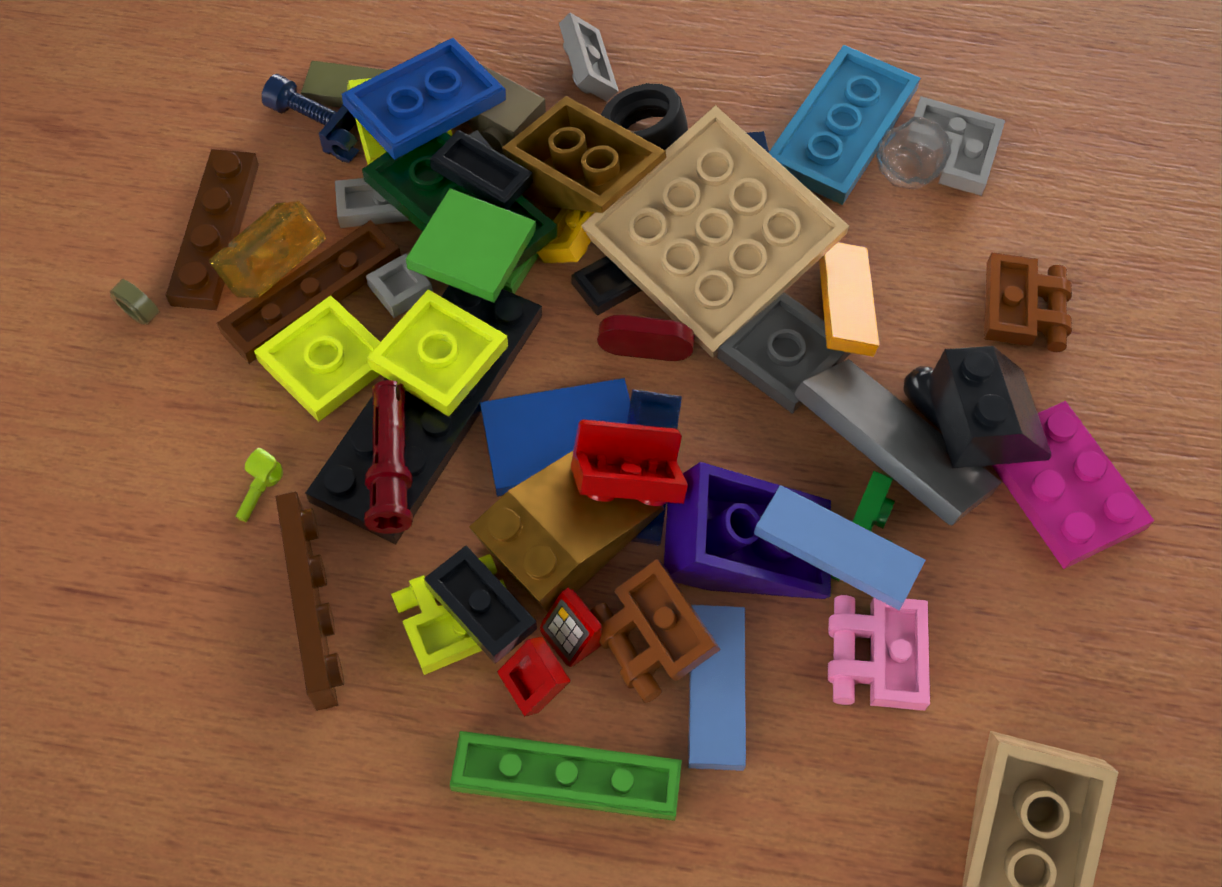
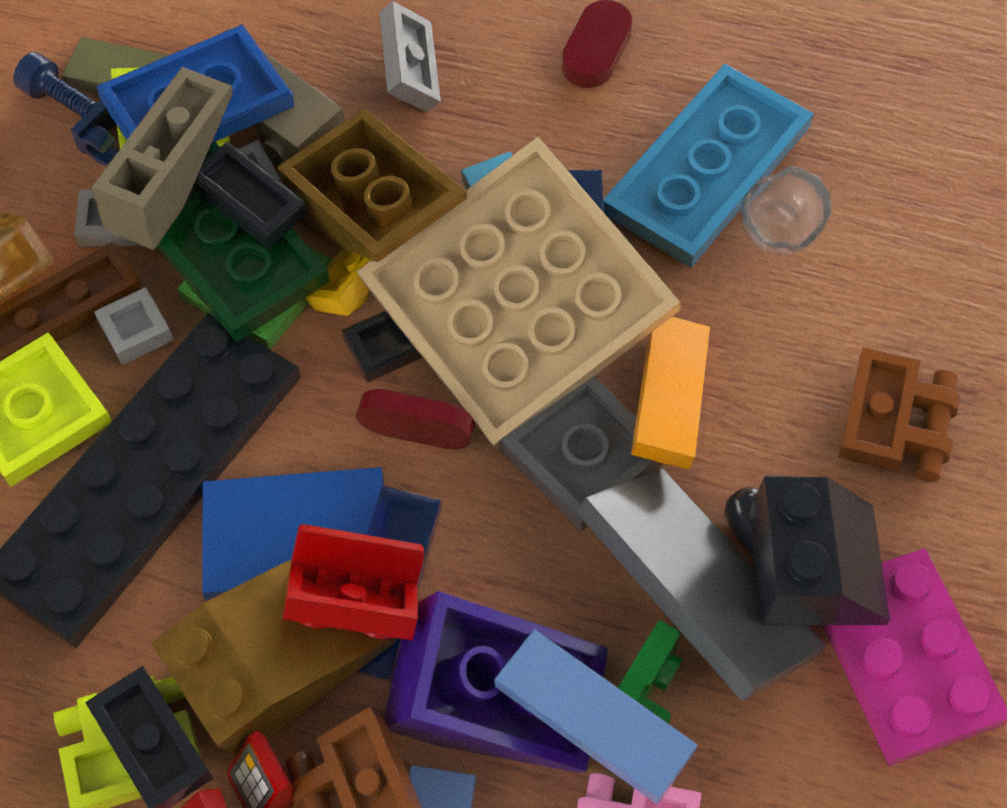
camera: 10 degrees right, 0 degrees up
(388, 476) = (70, 567): dark red pin -> none
(411, 145) = (160, 160): none -> dark tan slope
(438, 352) = (156, 417): neon yellow plate -> none
(471, 245) = (217, 287): bright green tile -> none
(647, 102) = (458, 121): black tyre -> none
(736, 37) = (596, 43): none -> dark red tile
(972, 142) = (862, 200): light grey plate -> none

